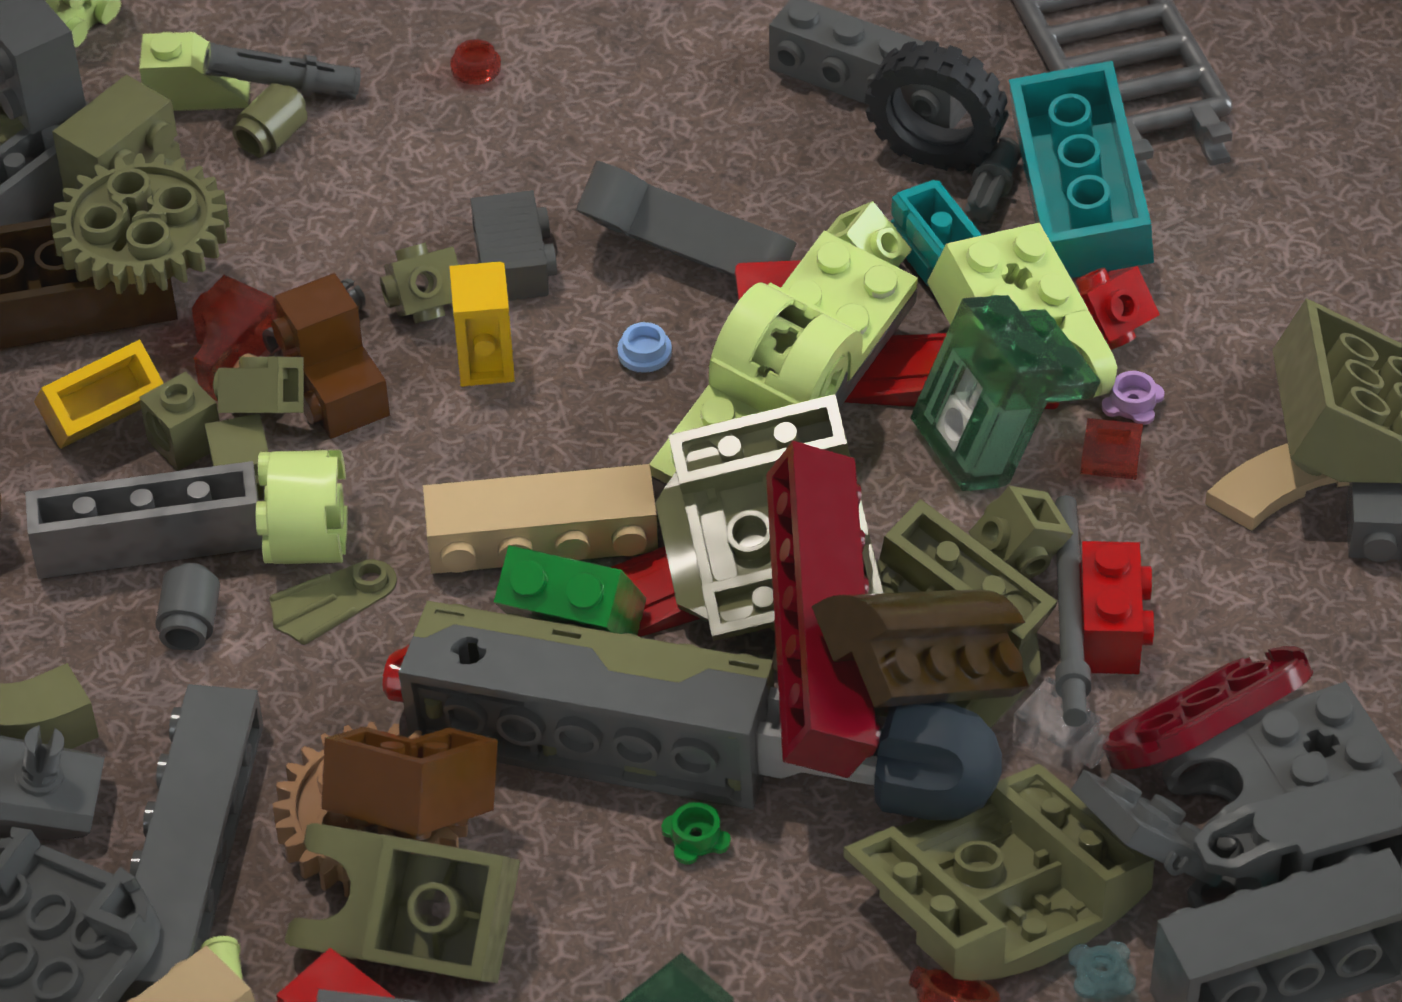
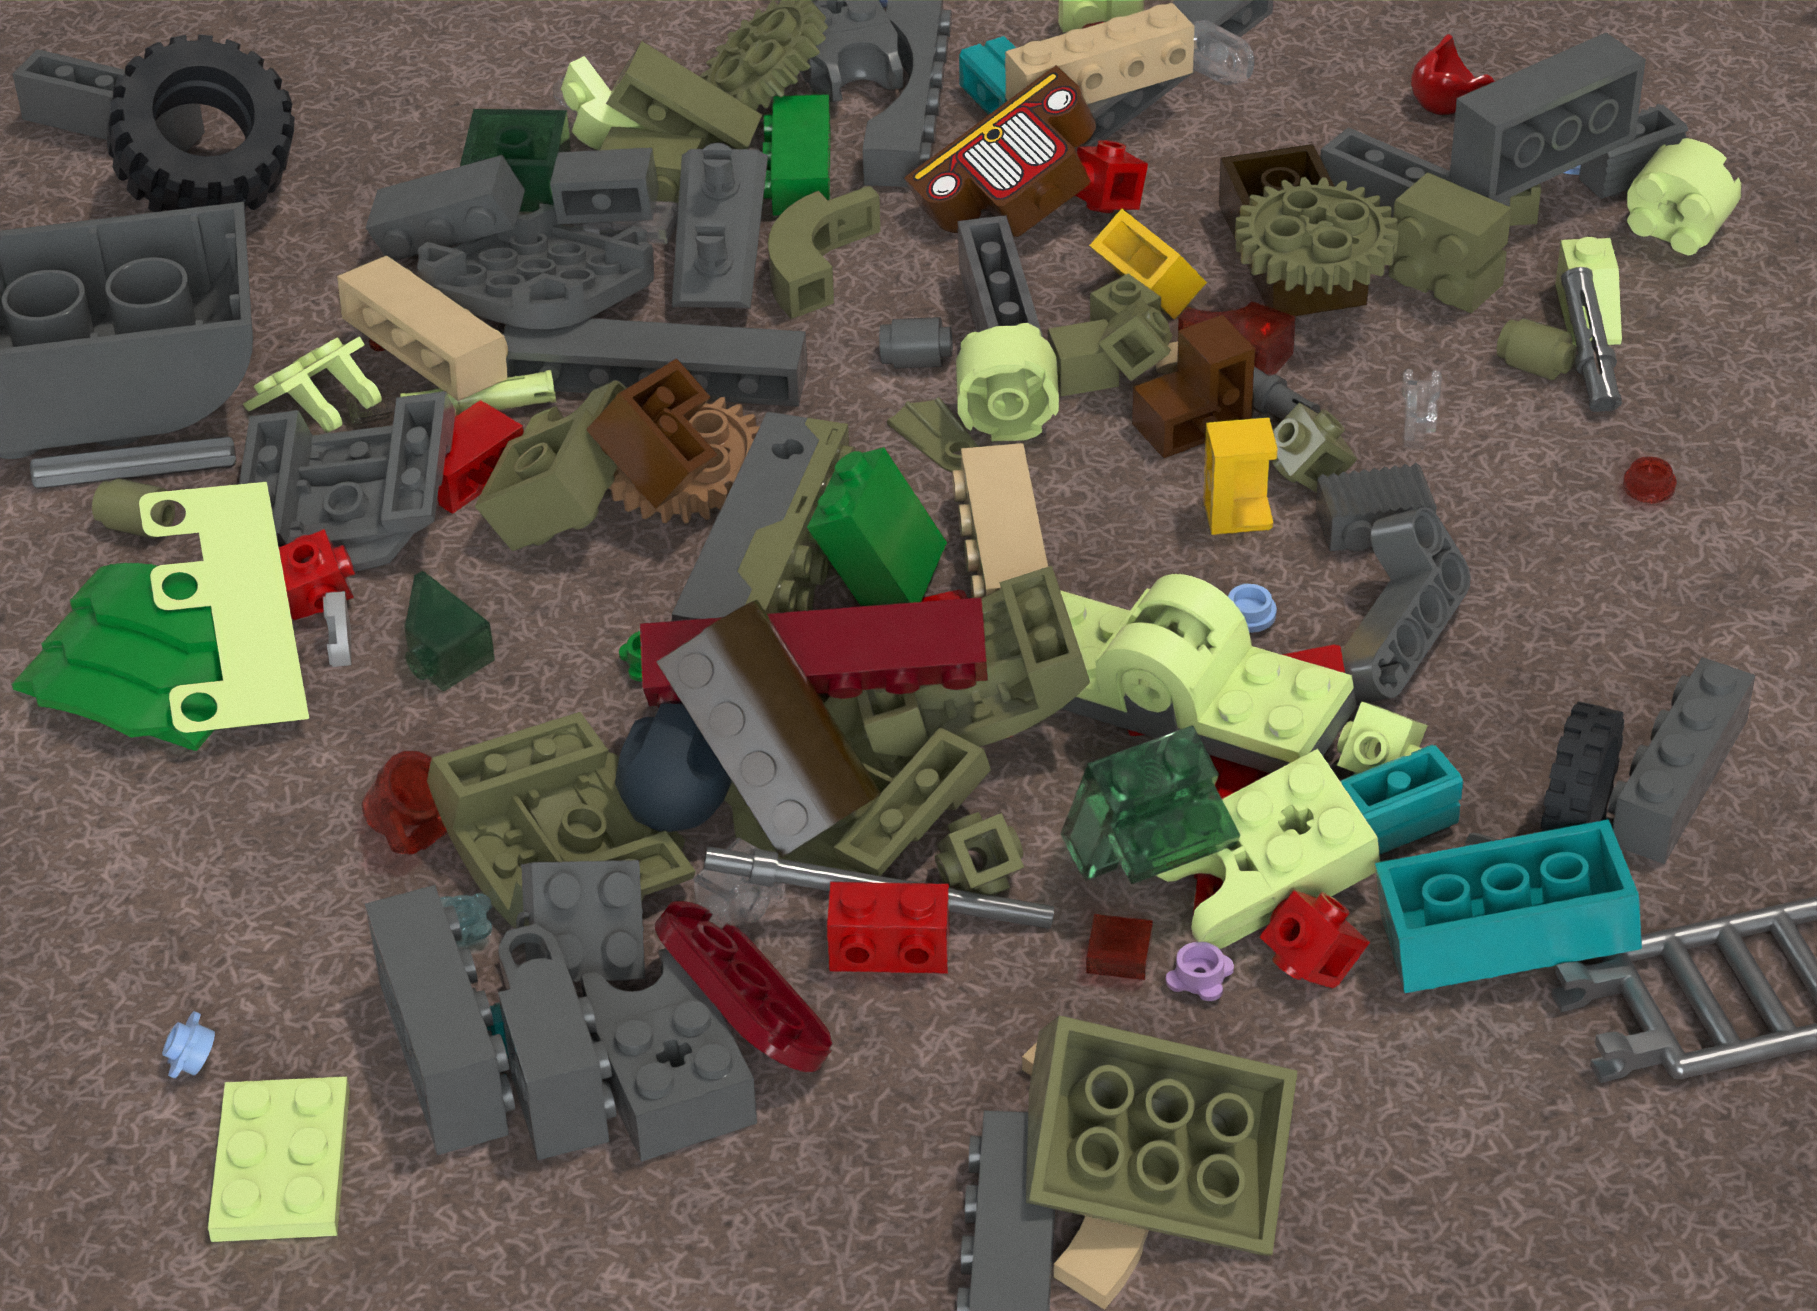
camera: 90 degrees right, 5 degrees down
(358, 206) = (1420, 408): none -> clear plate

